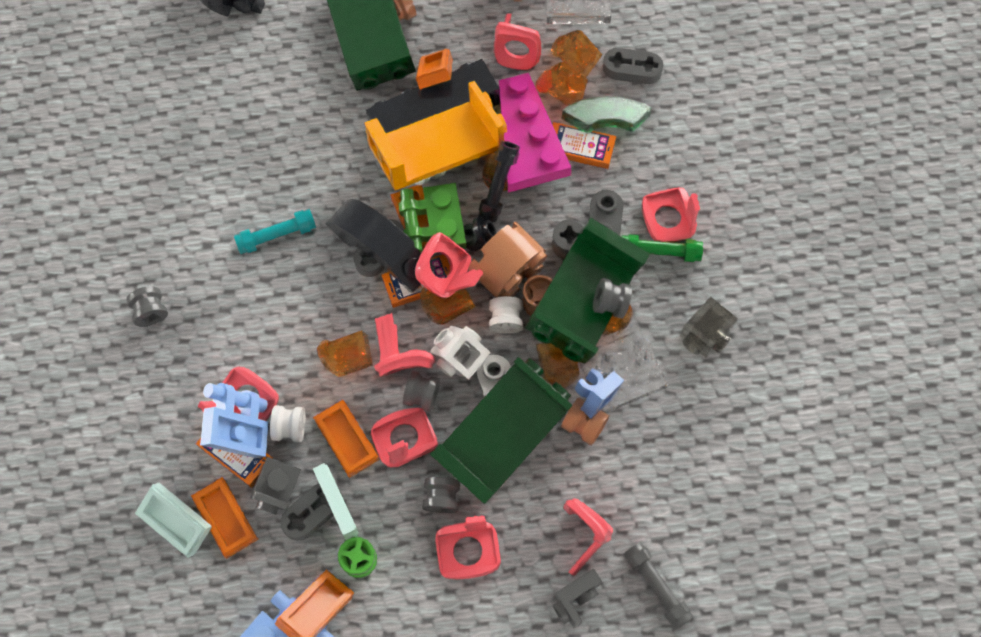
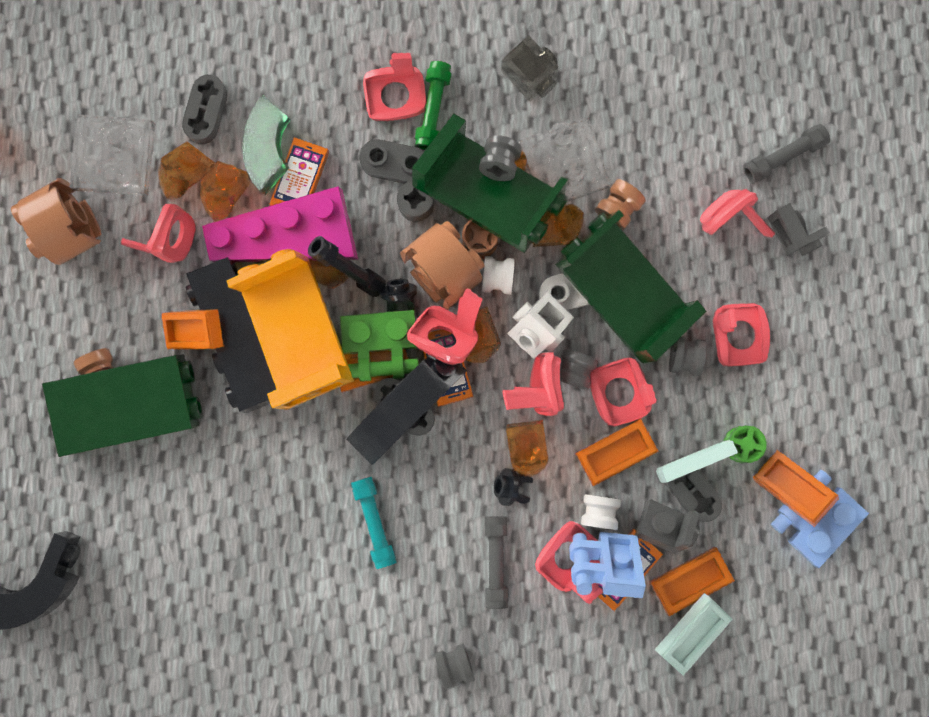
camera: 85 degrees left, 15 degrees up
(211, 338) = (496, 595): none -> dark grey bar
(308, 339) = (507, 486): none -> black plate
(598, 393) = (604, 180): medium blue tile -> none

